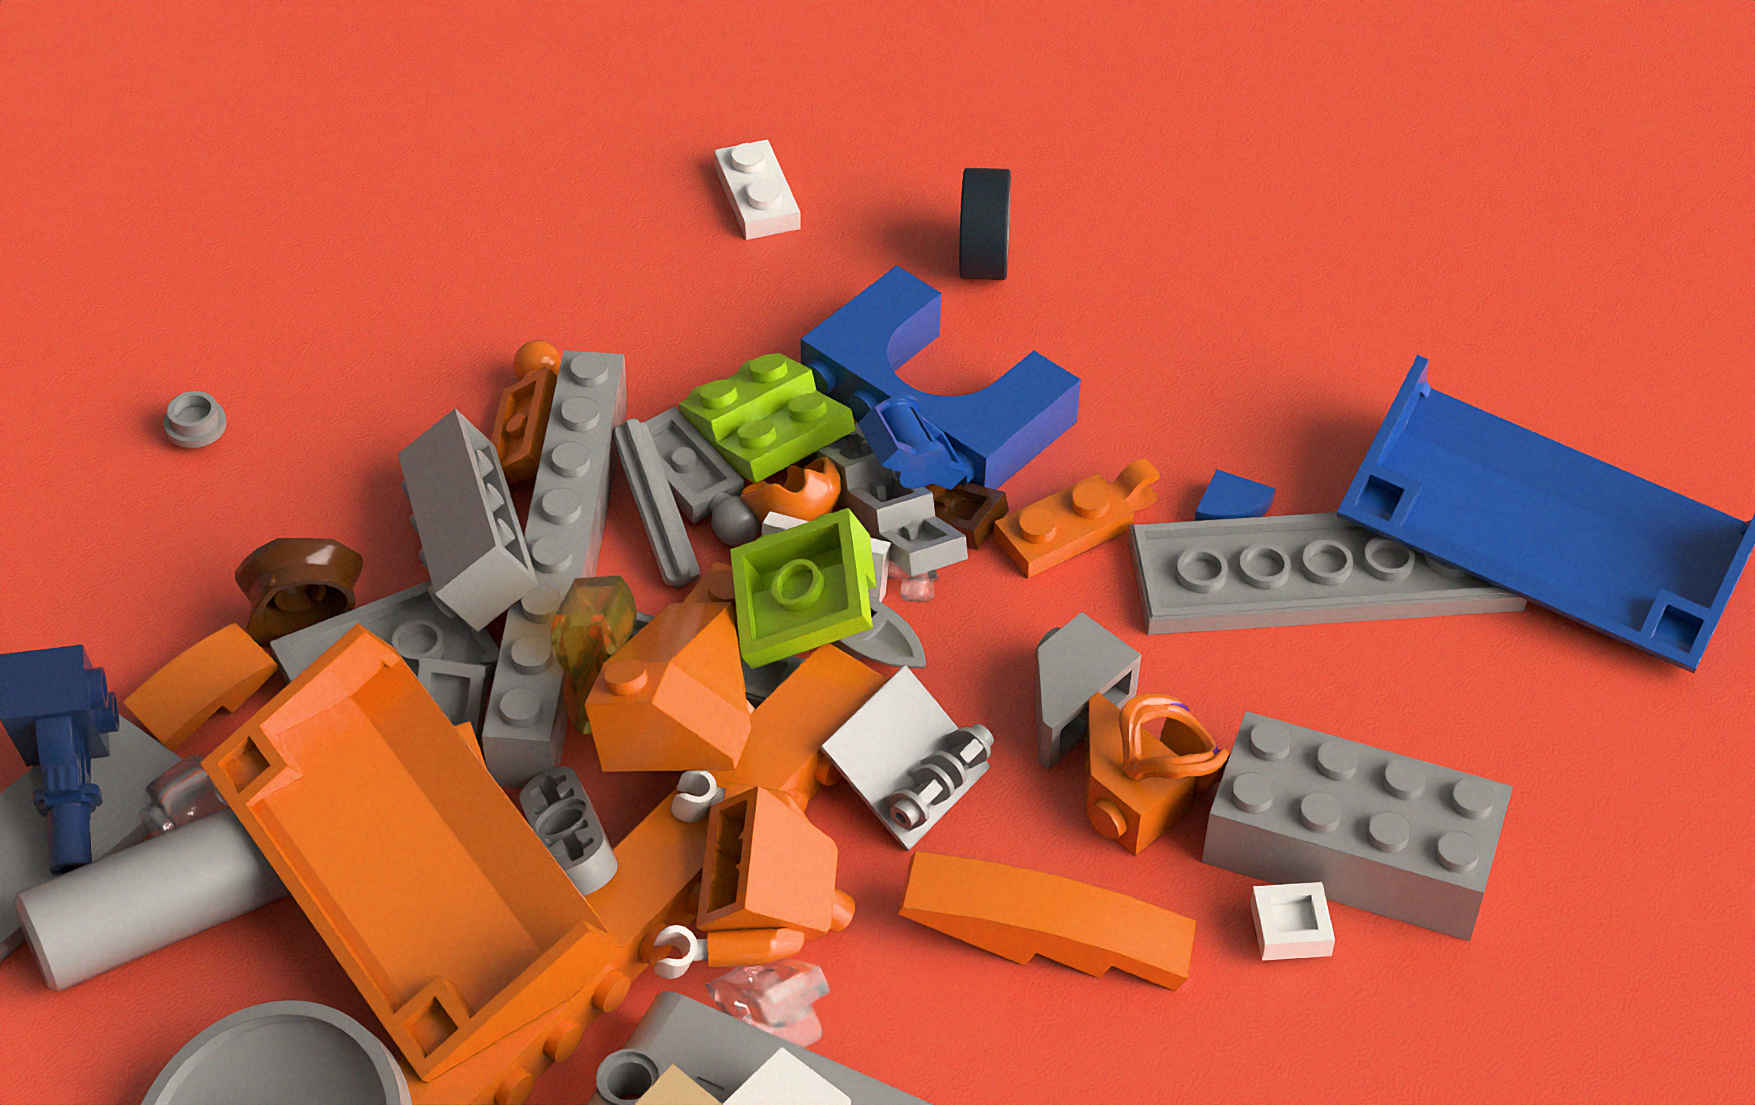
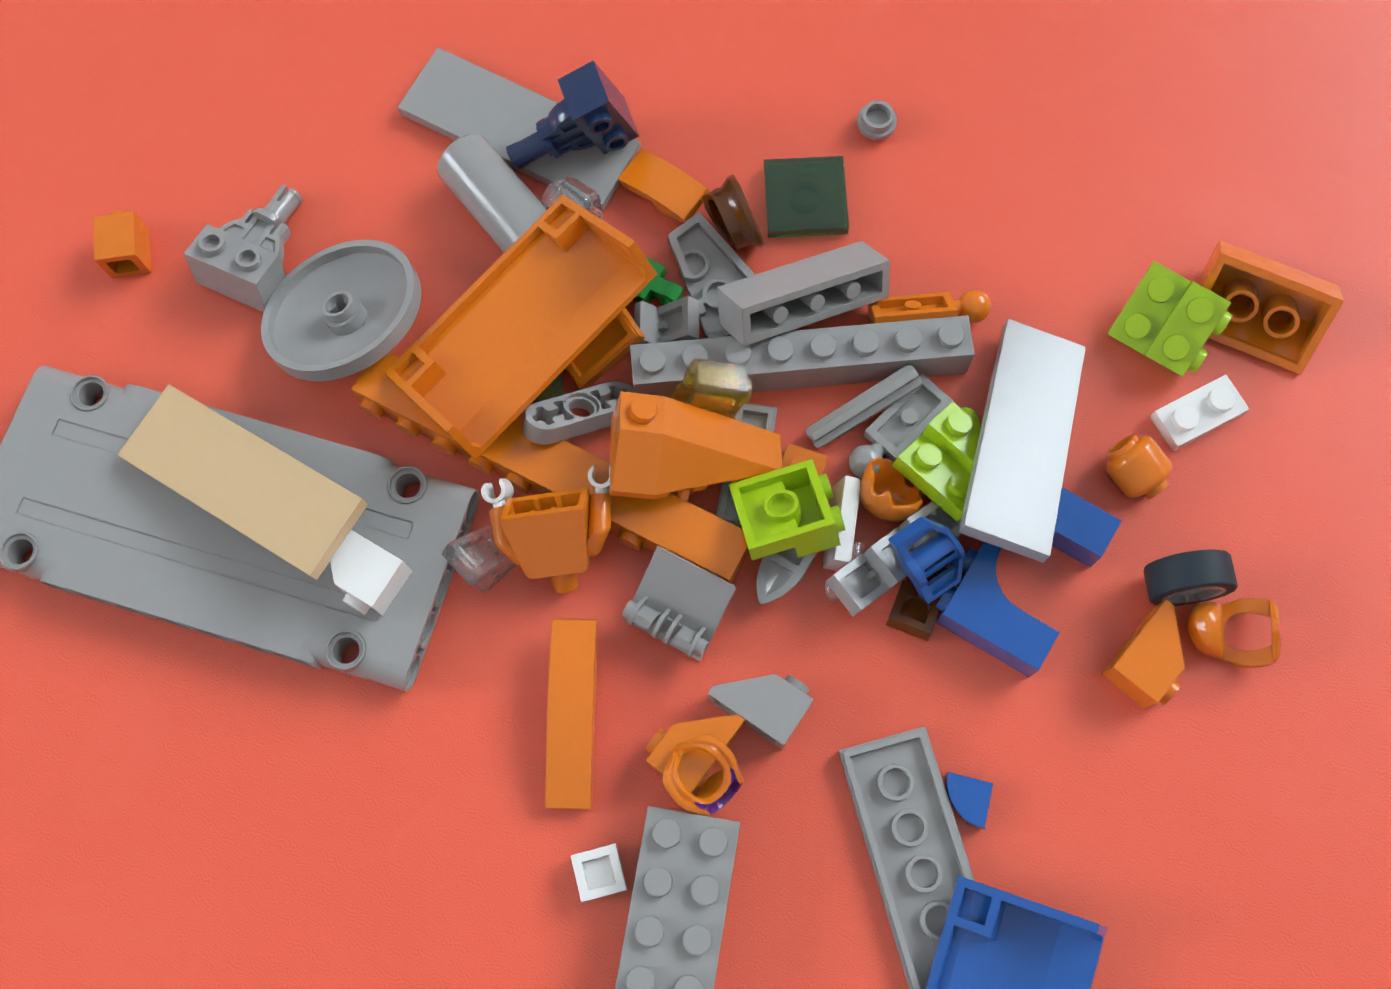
camera: 85 degrees right, 25 degrees up
(282, 505) = (805, 197): none -> clear green tile
(628, 174) = (1171, 319): none -> lime plate
(632, 98) = (1274, 307): none -> orange slope
(760, 330) = (1023, 442): none -> tile
(819, 248) = (1138, 466): none -> orange head
(1049, 225) = (1207, 628): none -> orange piece
(1075, 289) = (1150, 659): none -> orange slope
(1075, 518) = (924, 687): orange plate -> none

